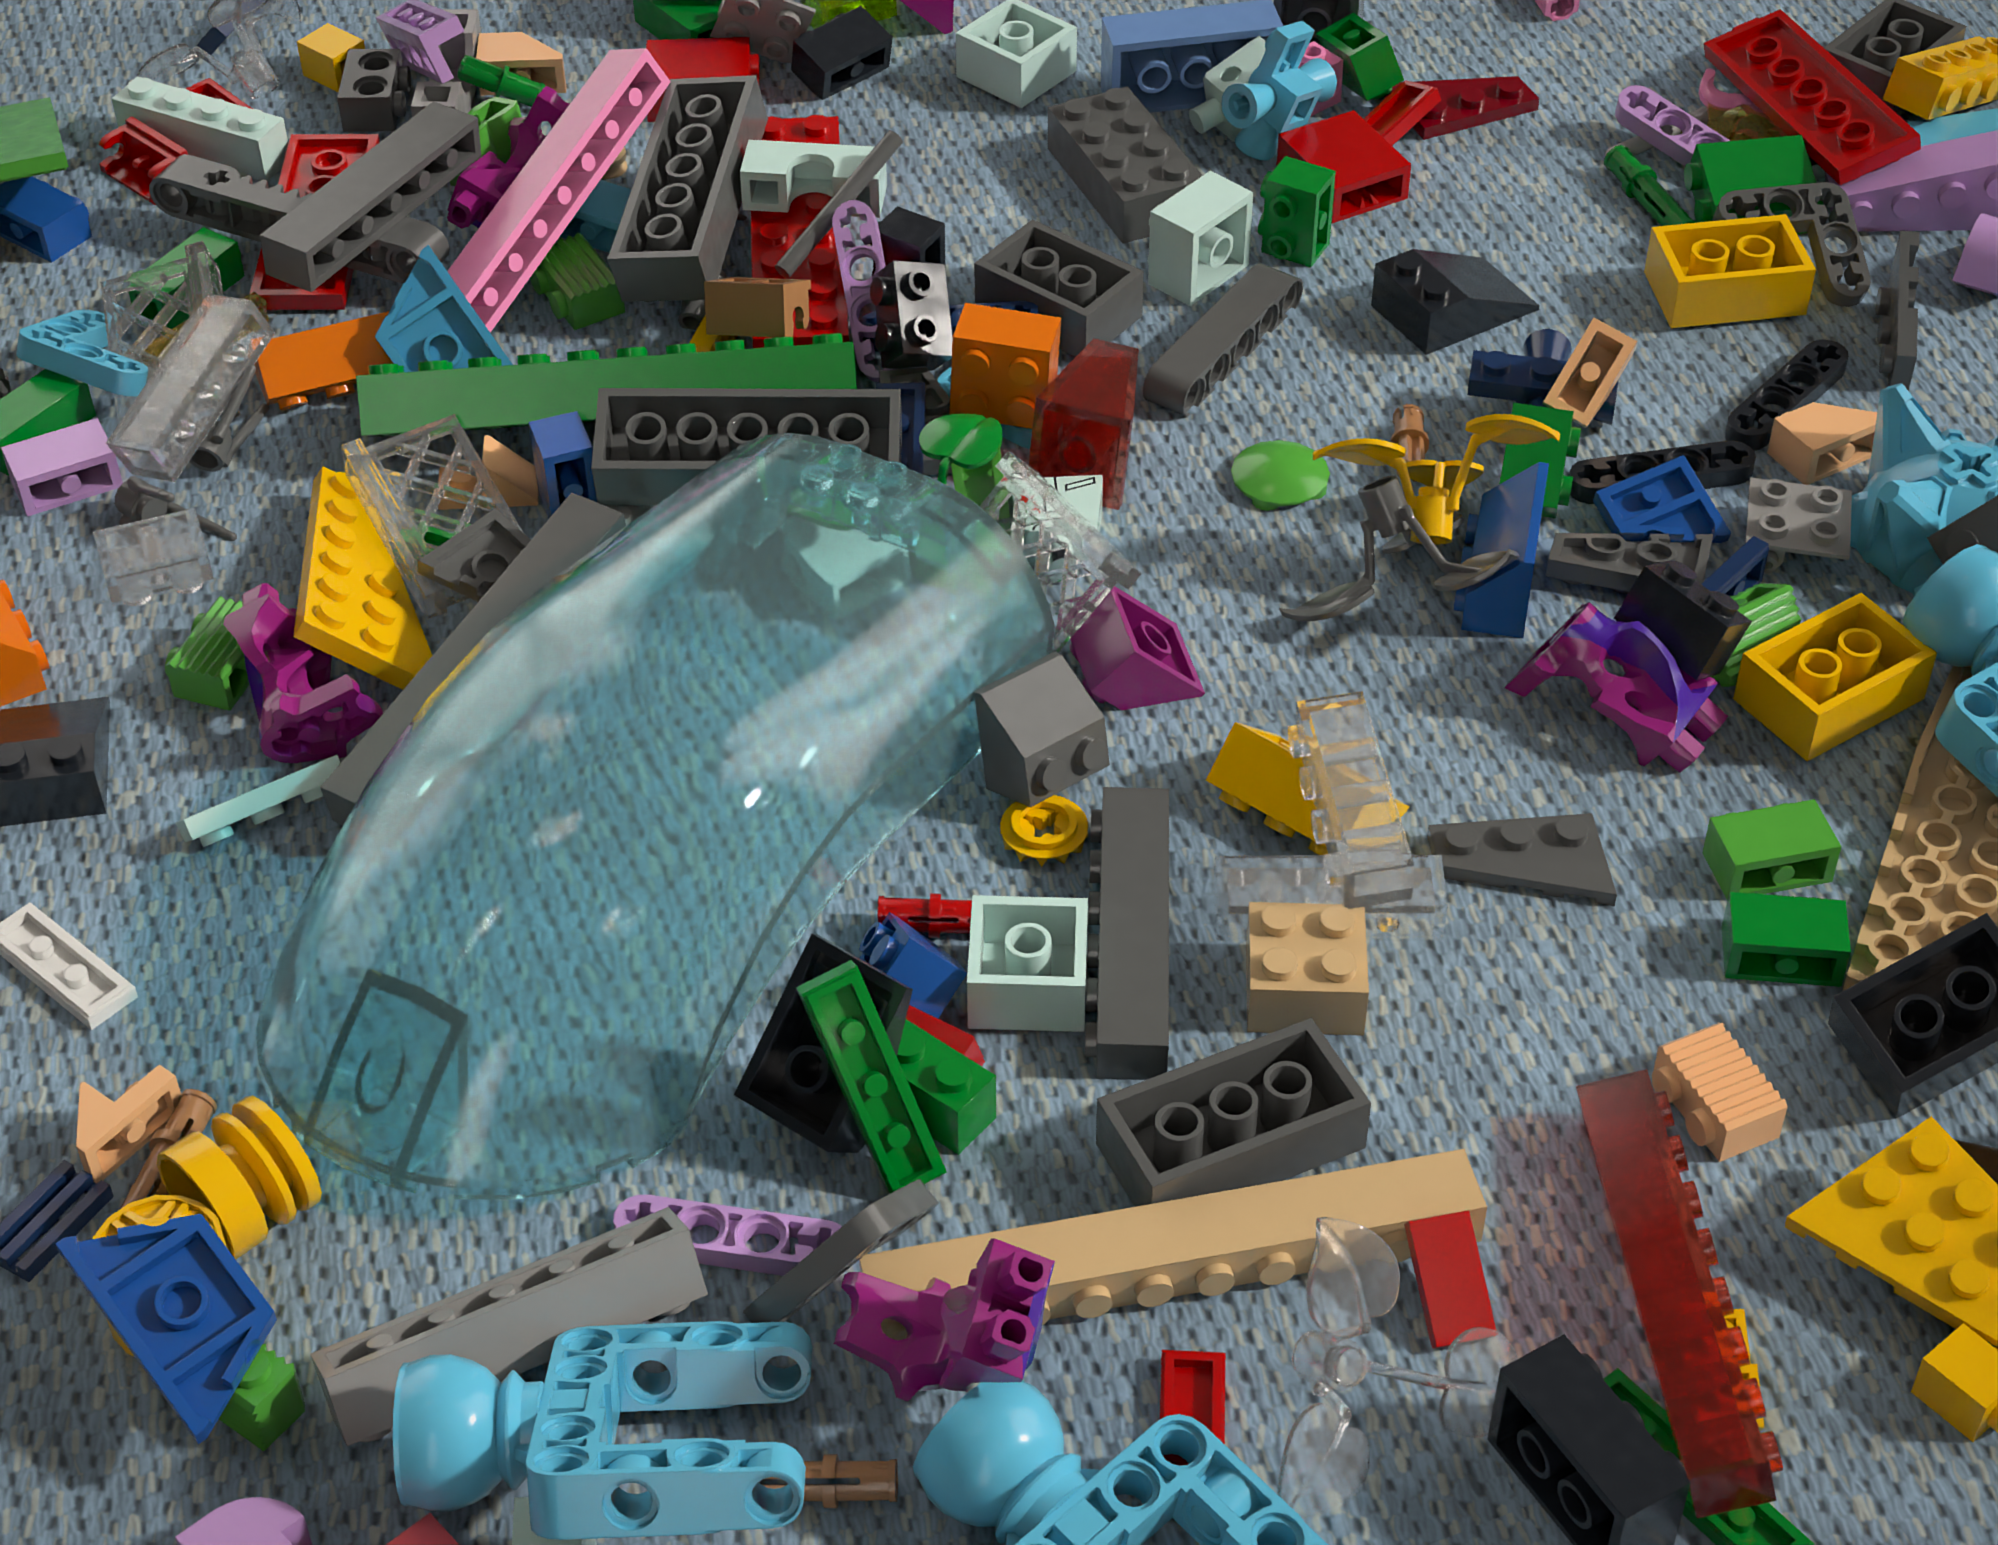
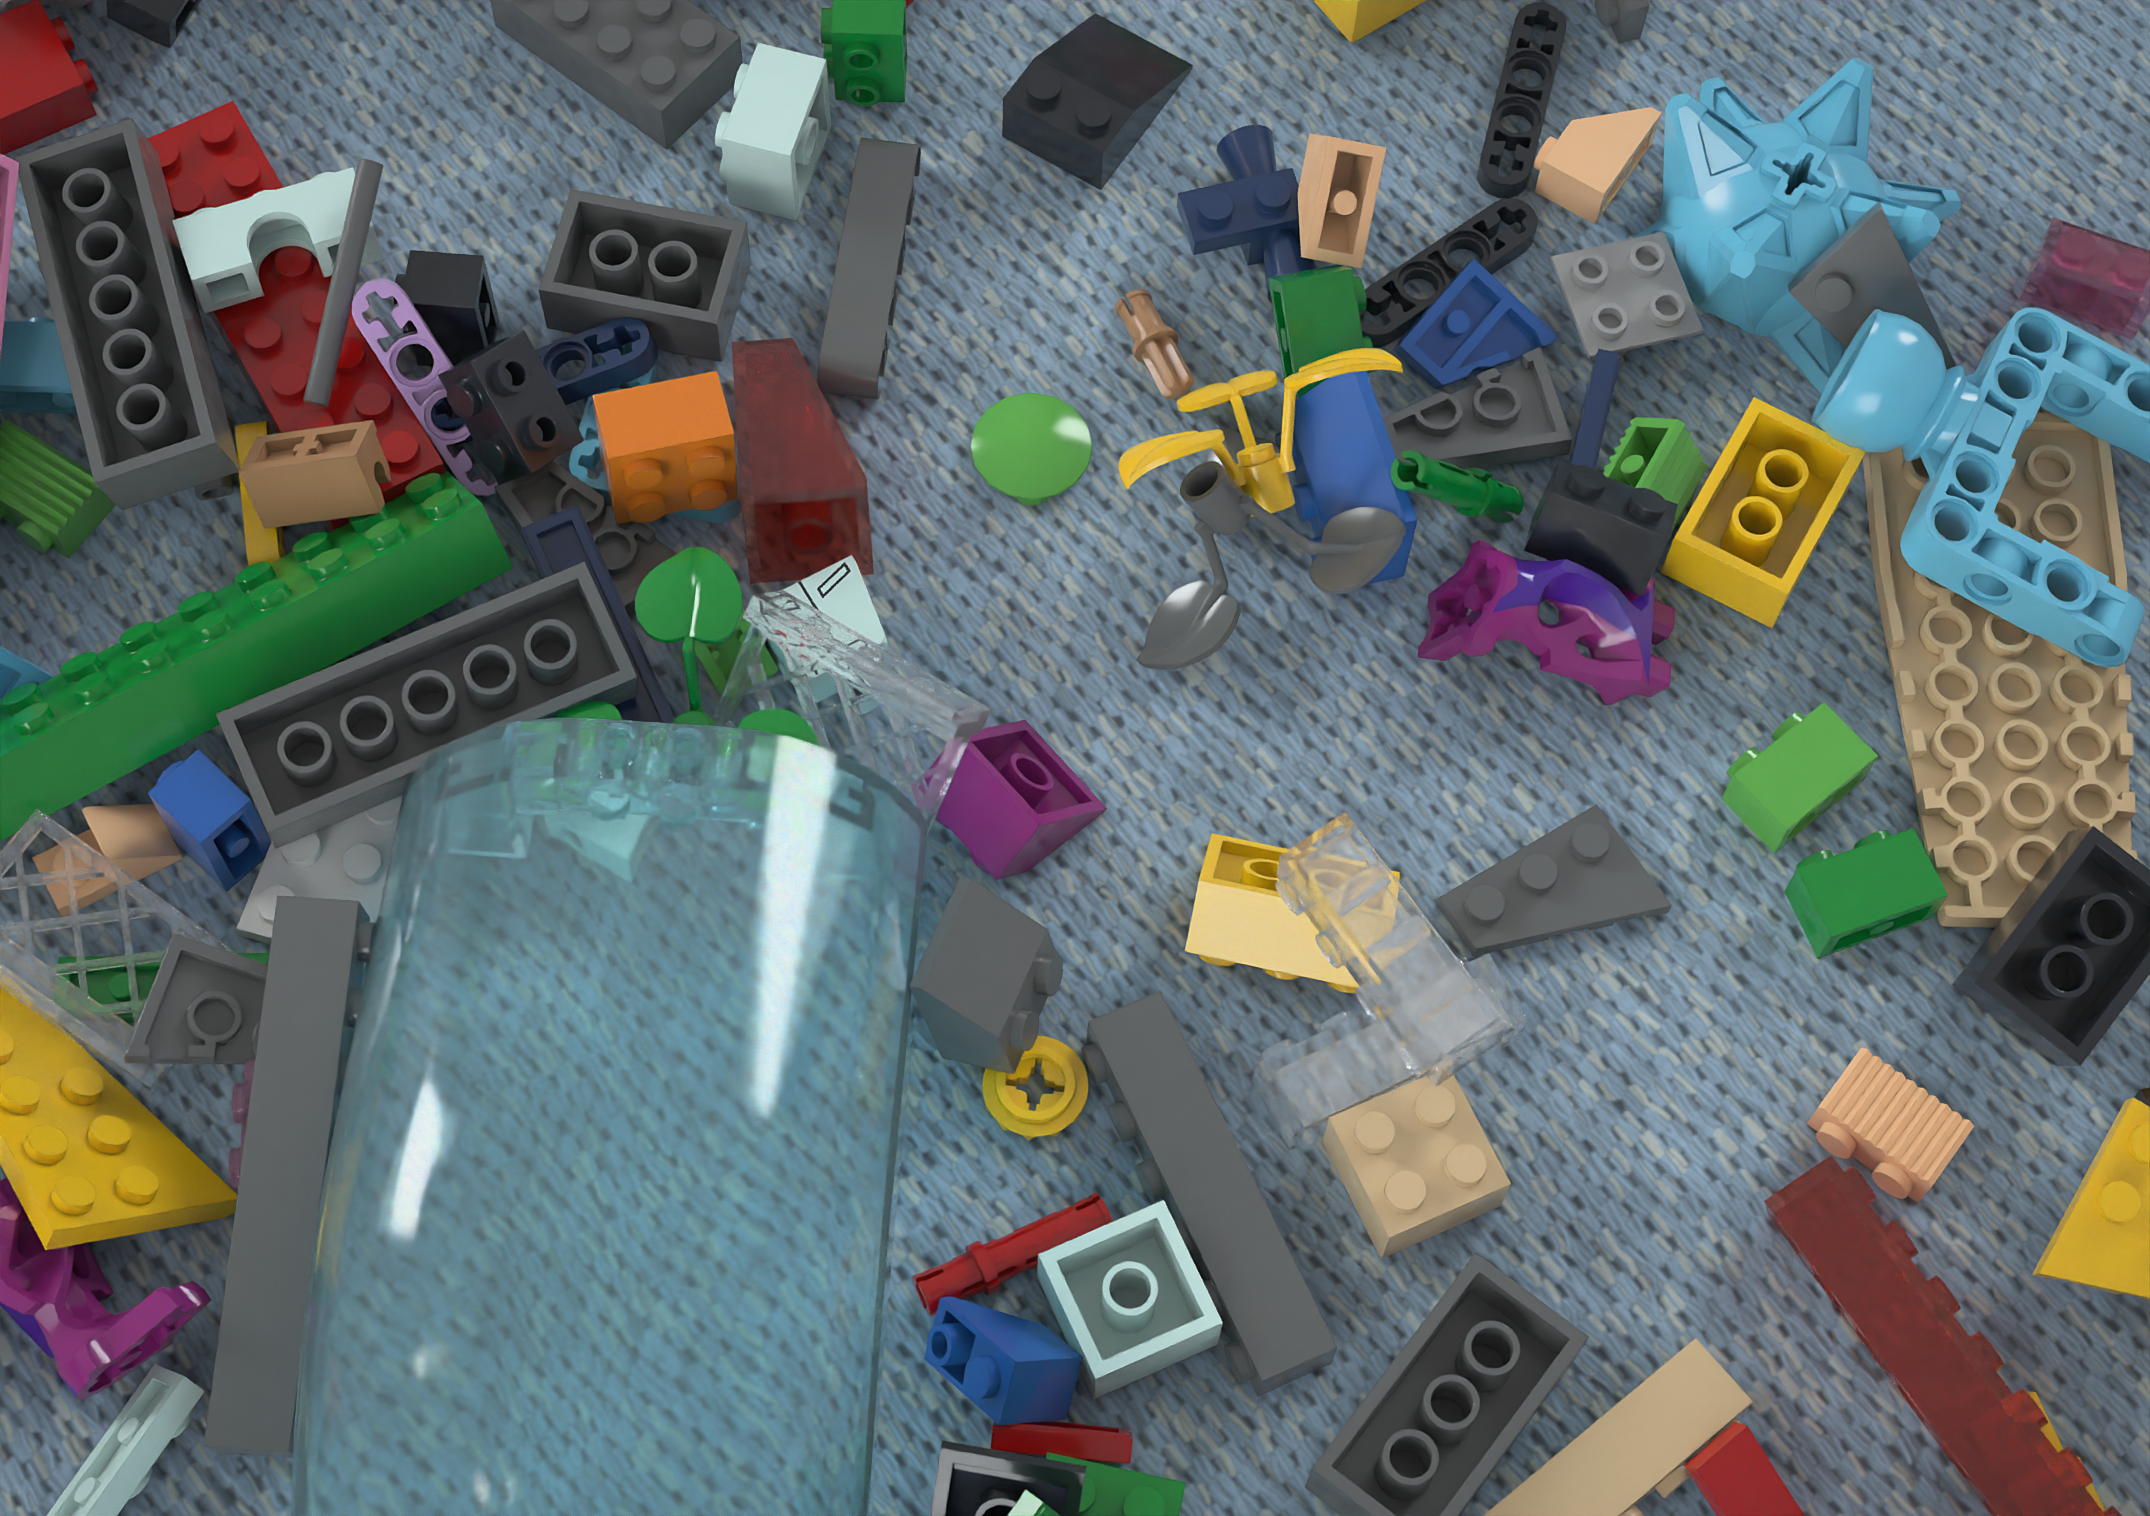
camera: 30 degrees left, 20 degrees up
(1597, 584) = (1467, 489): none -> green pin

